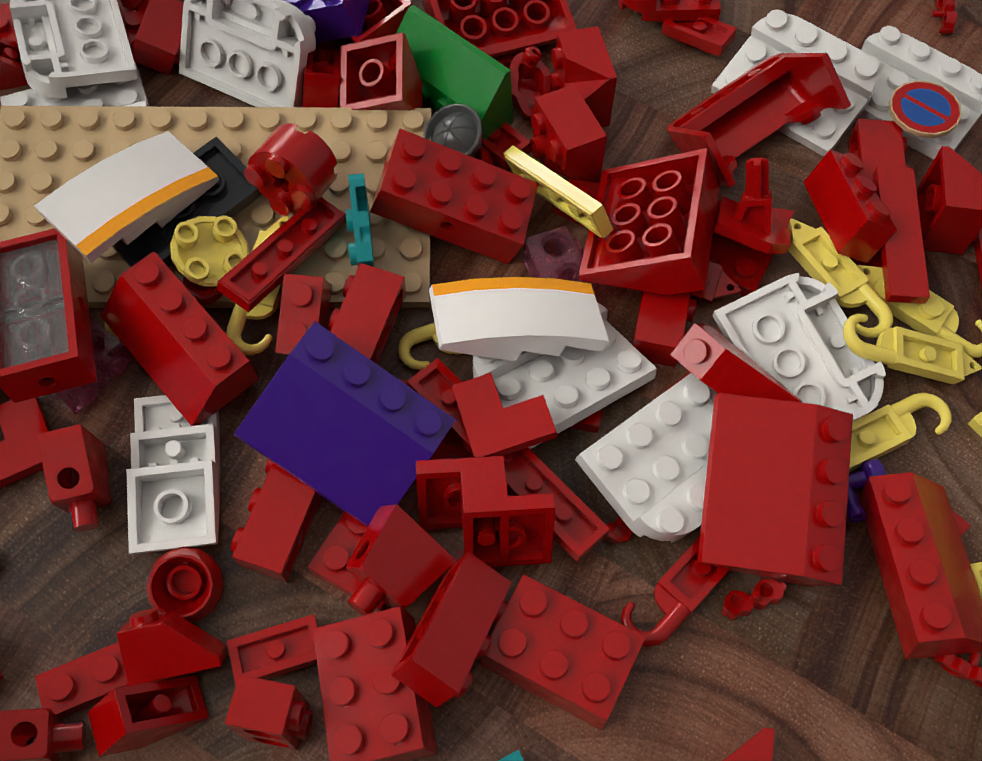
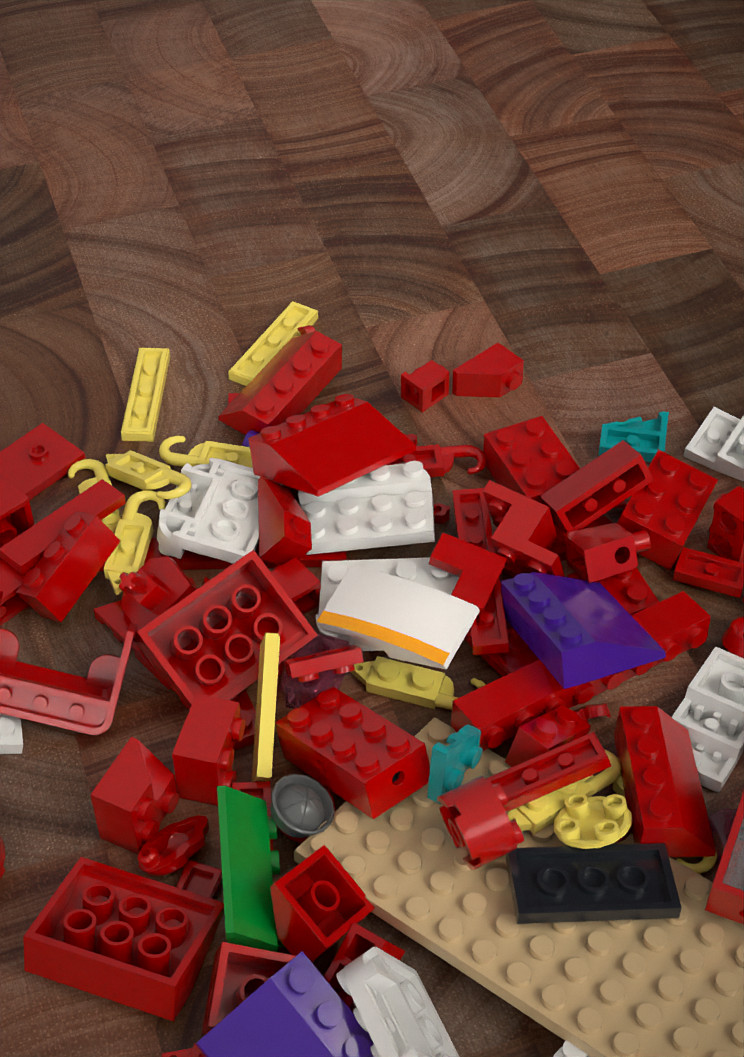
camera: 140 degrees left, 15 degrees down
(127, 194) = (635, 886): white slope -> none
(546, 244) = (339, 659): none -> red plate
(790, 702) = (425, 385): none -> red brick

